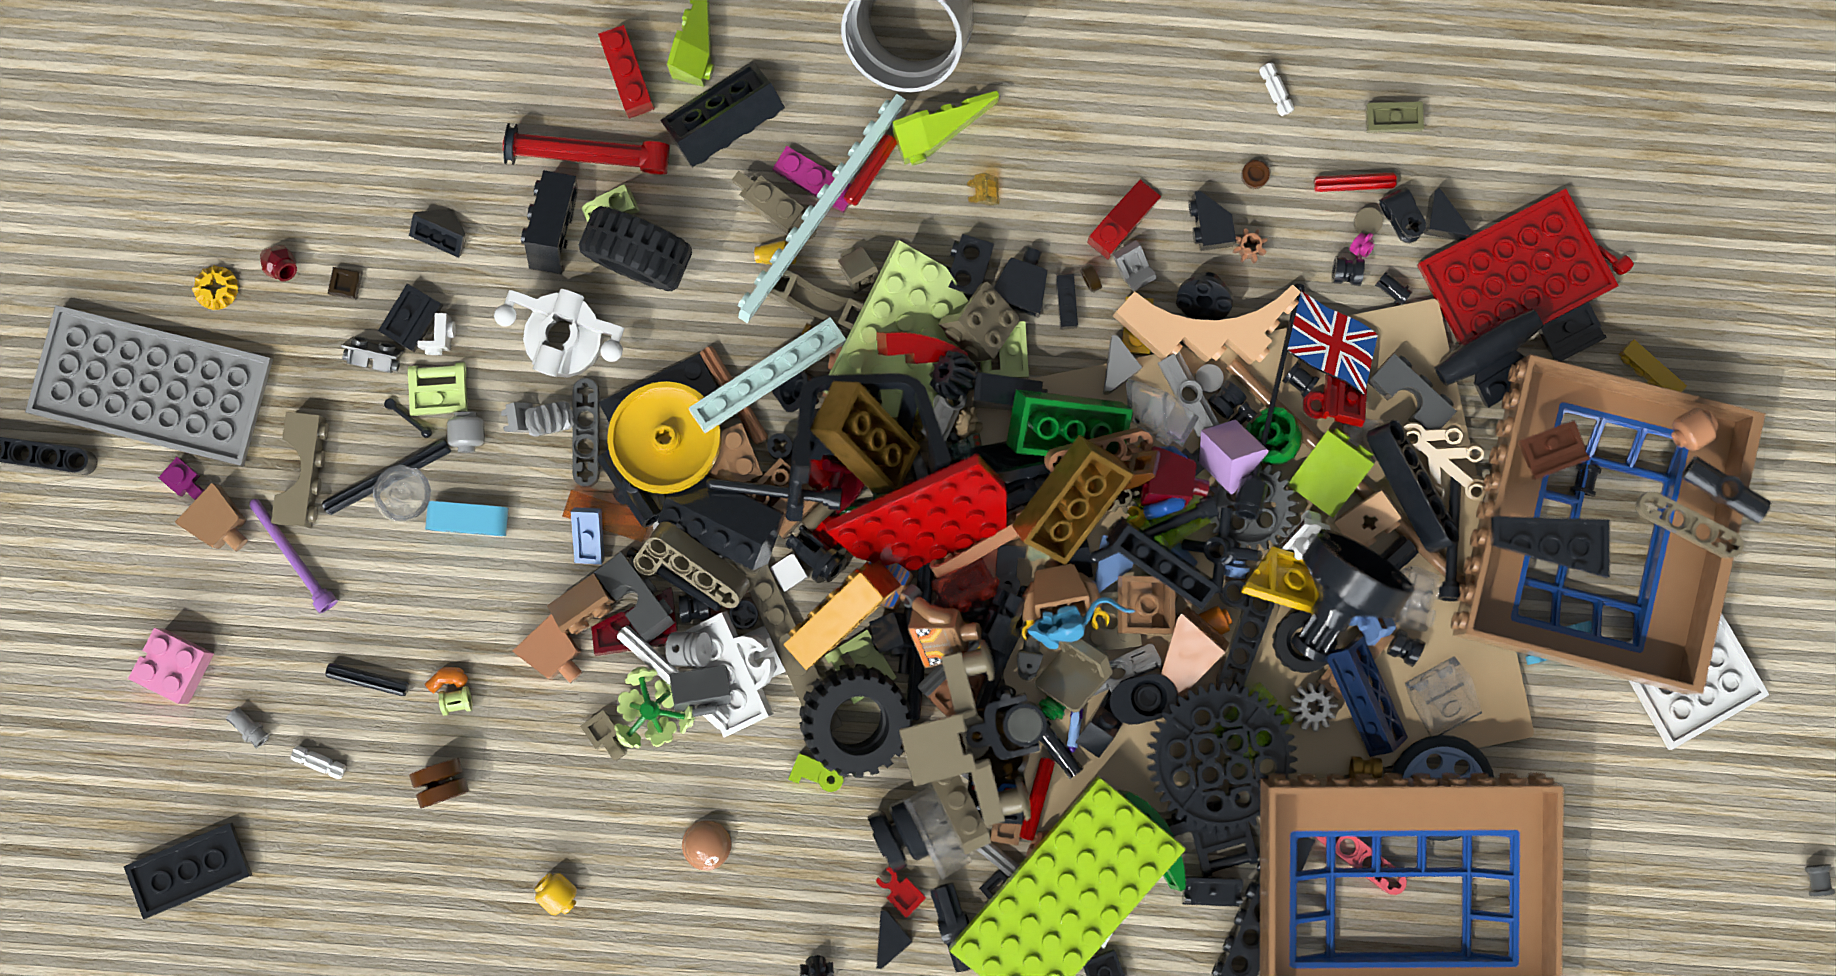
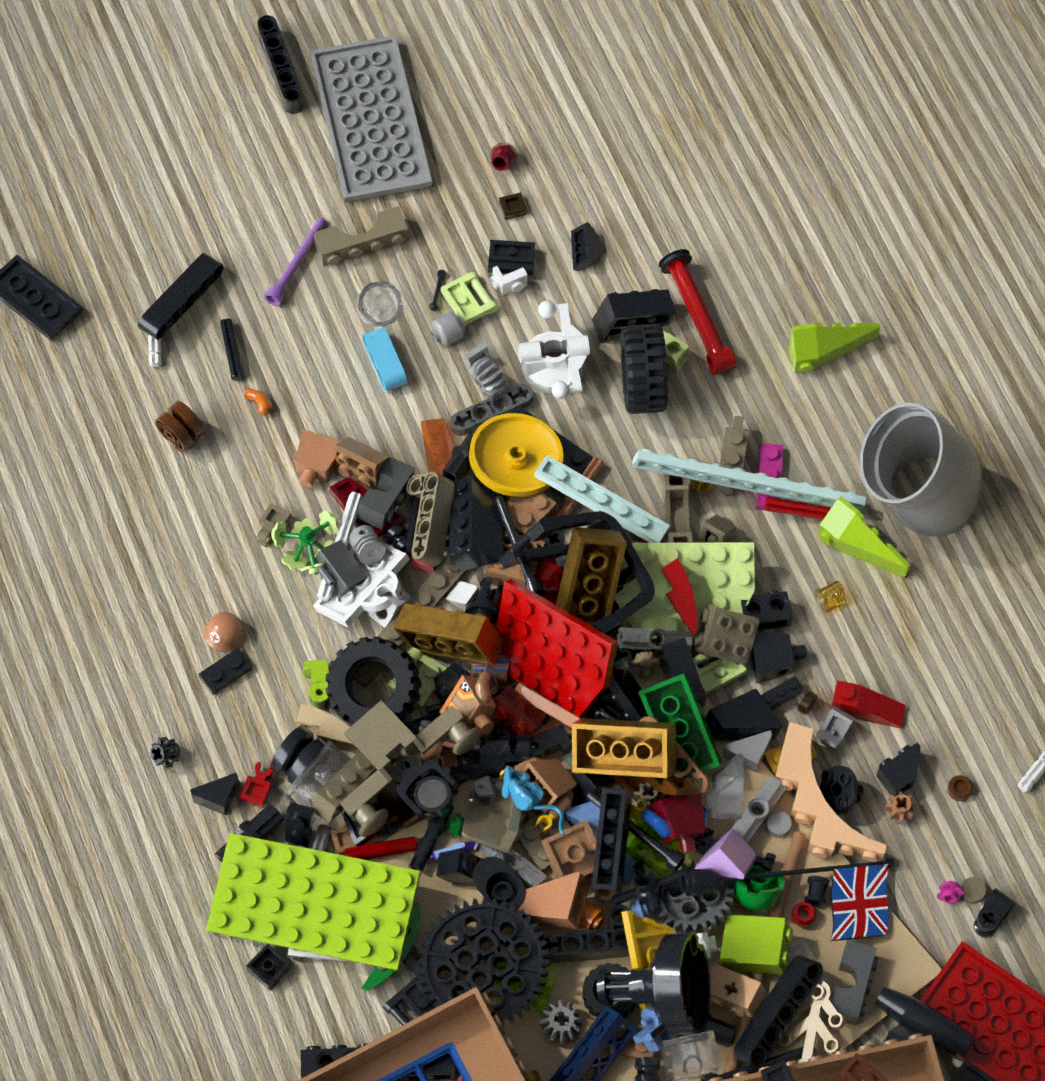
camera: 60 degrees right, 20 degrees down
(171, 666) = (176, 219): bright pink piece -> none
(181, 479) = (313, 169): magenta plate -> none
(214, 519) = (297, 199): medium nougat torso -> none
(223, 296) = (459, 134): yellow gear -> none
(250, 730) = (157, 287): light grey pin -> none
(274, 707) = (180, 296): none -> black beam
(365, 487) = (409, 308): black axle -> none
(383, 354) = (469, 237): hinge -> none
(455, 701) = (254, 415): yellowish green bush -> none
(555, 893) = (136, 543): yellow head -> none
(587, 535) = (415, 442): plate -> none
(626, 71) = (782, 302): red arch -> none
(723, 114) = (779, 391): black slope -> none
(742, 612) = (414, 571): black wheel -> none
(751, 865) = (225, 671): none -> black plate
(874, 787) = (325, 726): none -> tan slope
(953, 375) = (672, 622): black gear -> none
(972, 872) = (299, 824): none -> black plate
(1079, 353) = (742, 718): none -> black slope
(1212, 891) = (372, 1014): black hinge -> none
(1227, 399) = (775, 842): black wheel -> none
(1343, 402) = (816, 928): red plate -> none
(1348, 271) = (924, 890): black wheel -> none
(1355, 182) = (998, 865): red axle -> none
(1394, 288) = (931, 931): black pin -> none
(1443, 218) = (1007, 942): black slope -> none

